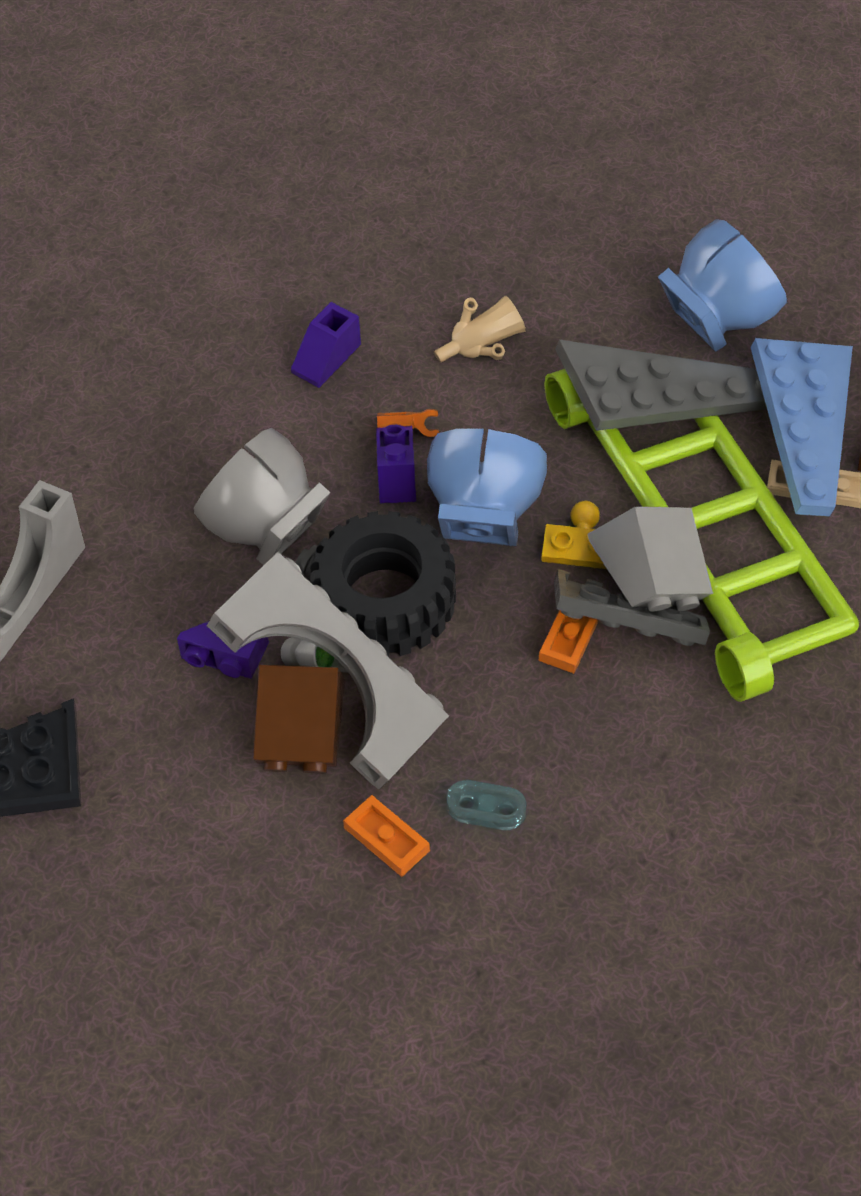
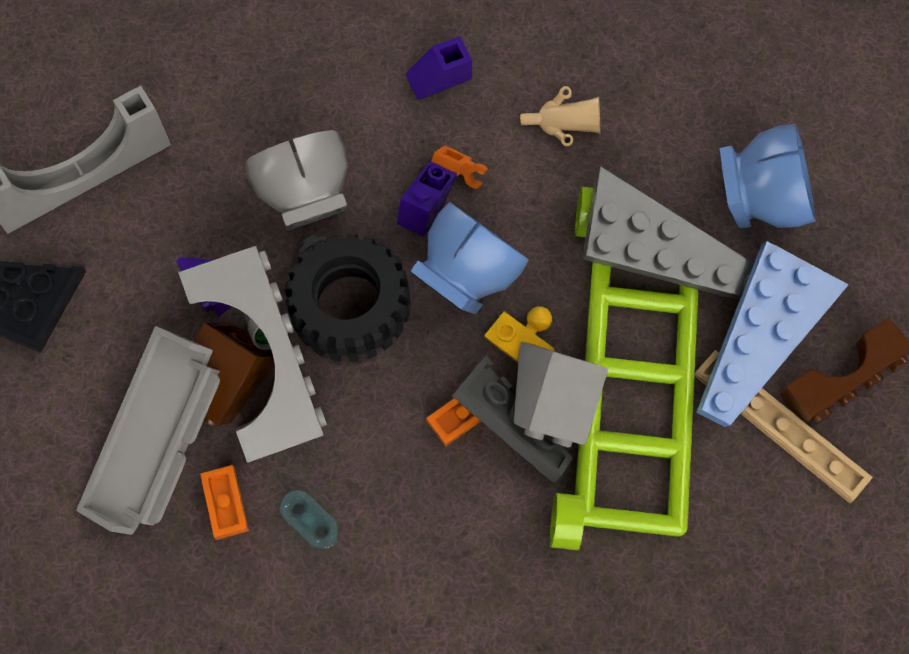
camera: 30 degrees right, 15 degrees up
(267, 806) = (151, 434): none -> light grey slope

